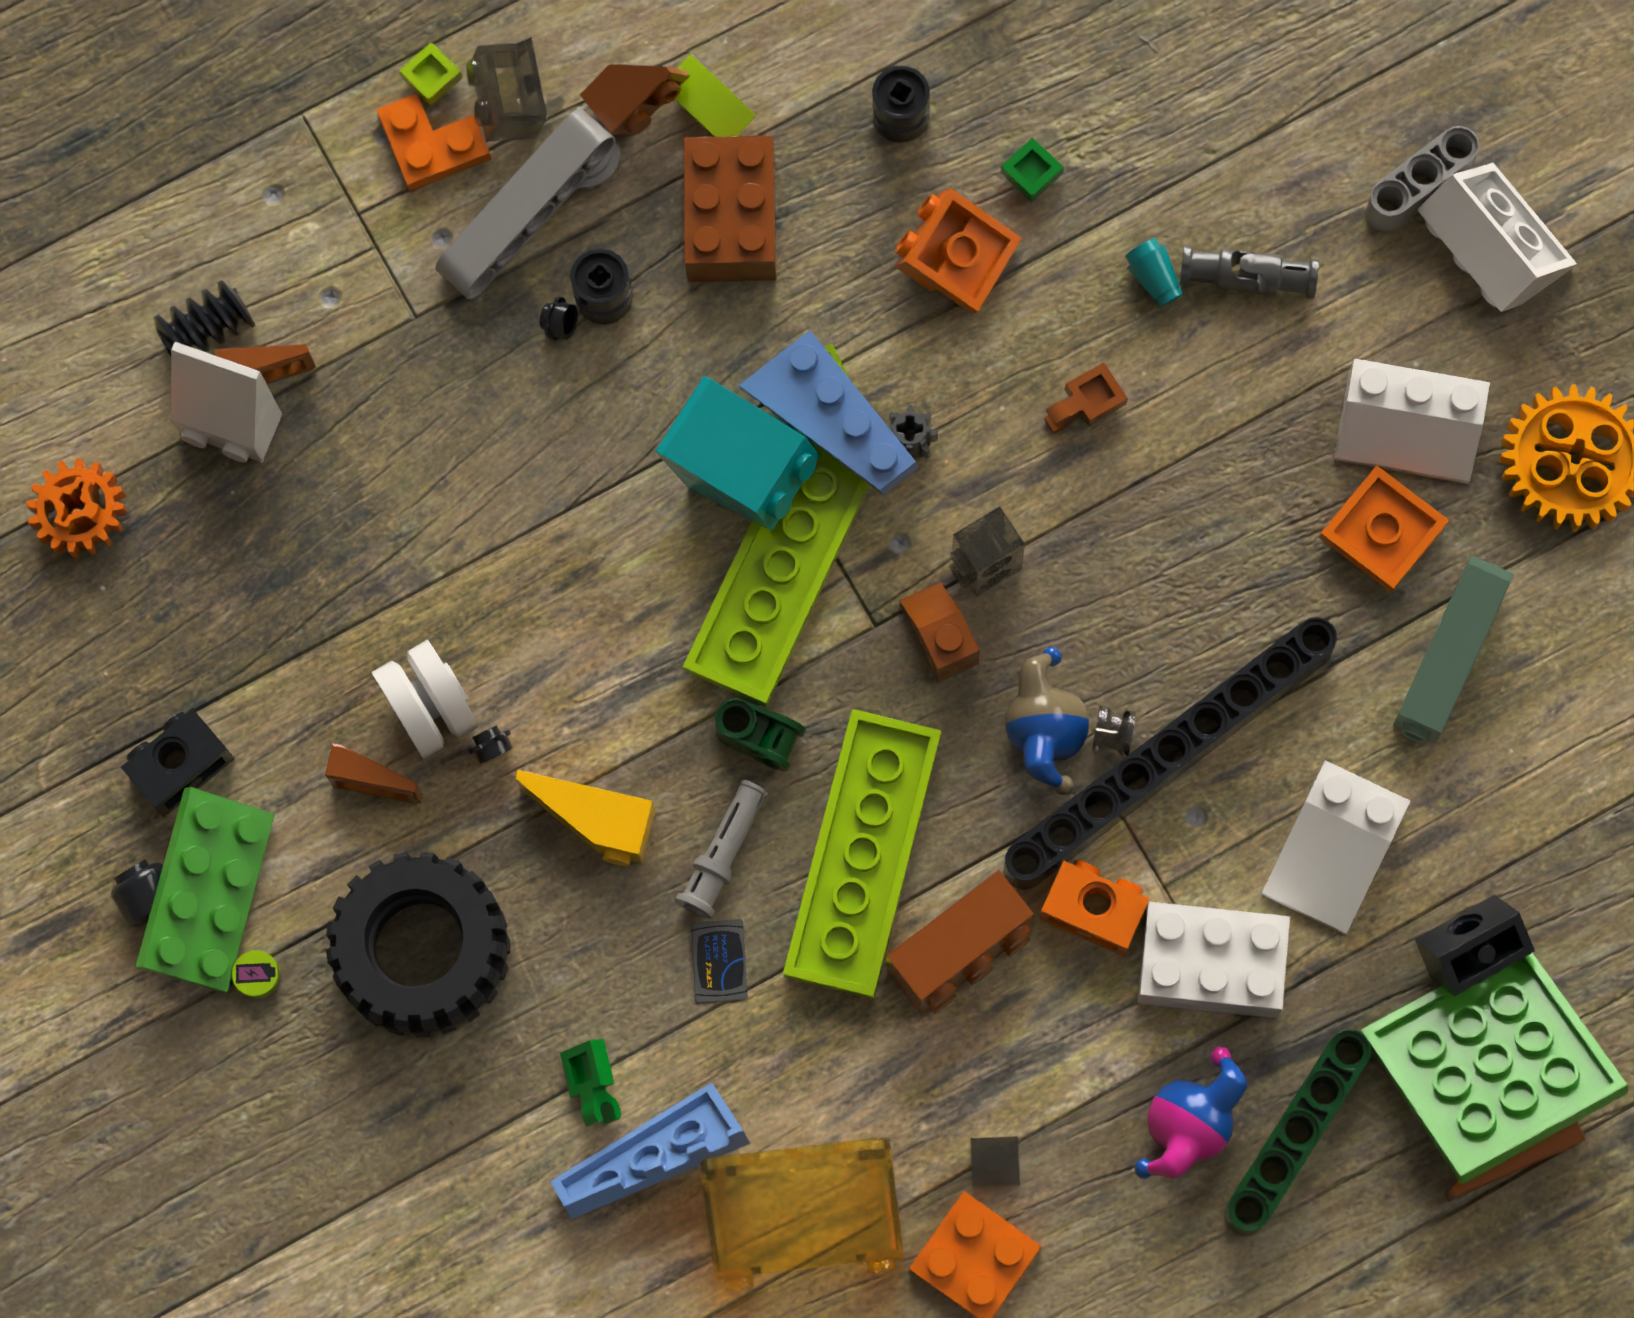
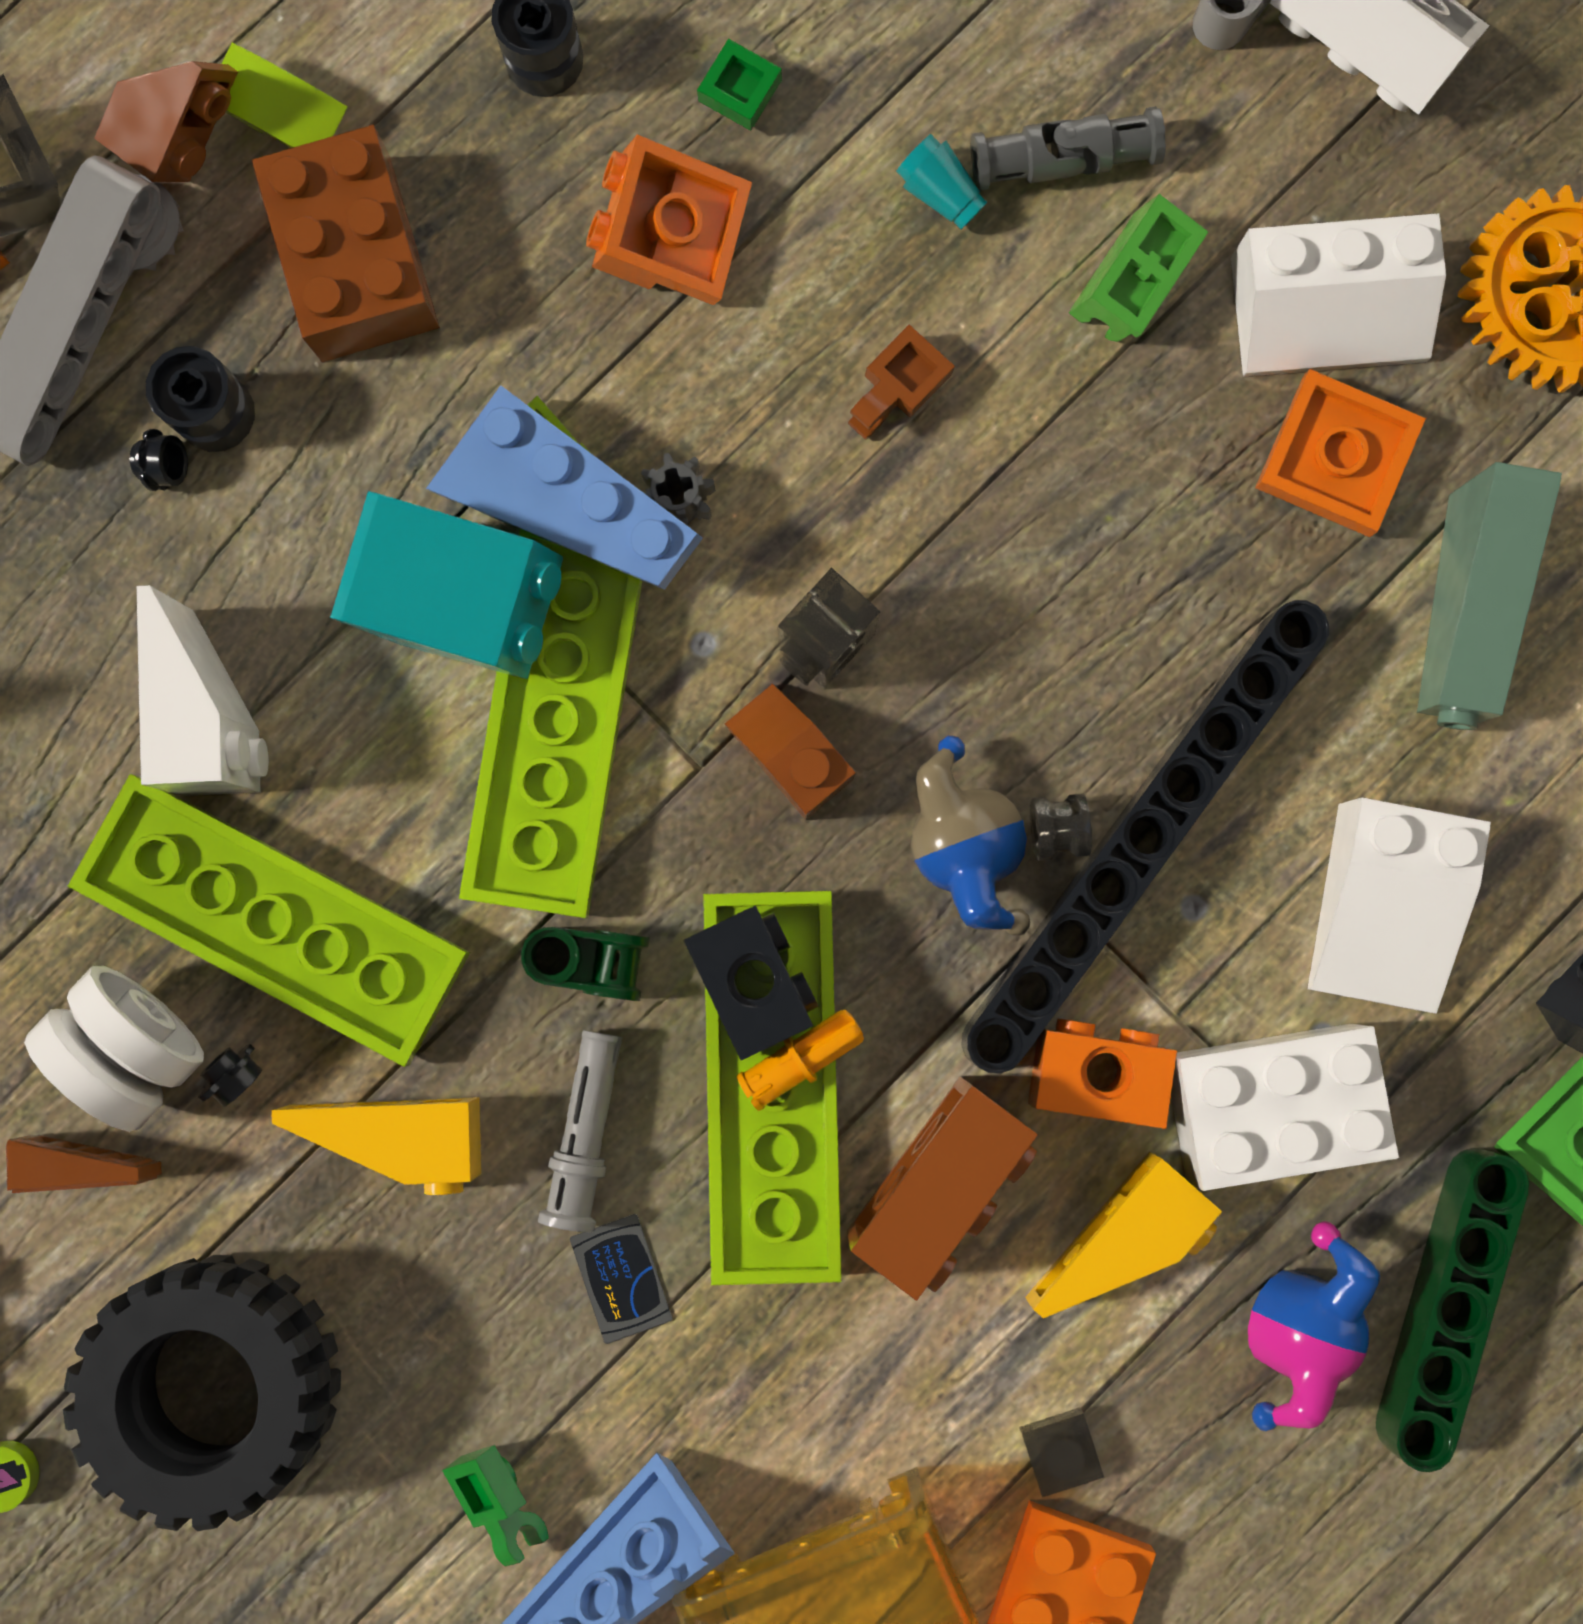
camera: 20 degrees left, 10 degrees up
(537, 507) = (190, 713): none -> white slope
(548, 648) = (269, 920): none -> lime plate
(863, 798) = (749, 1021): none -> black brick
(889, 833) = (800, 1059): none -> light orange axle
(1089, 1021) = (1135, 1233): none -> yellow slope
(1276, 367) = (1140, 269): none -> bright green hinge

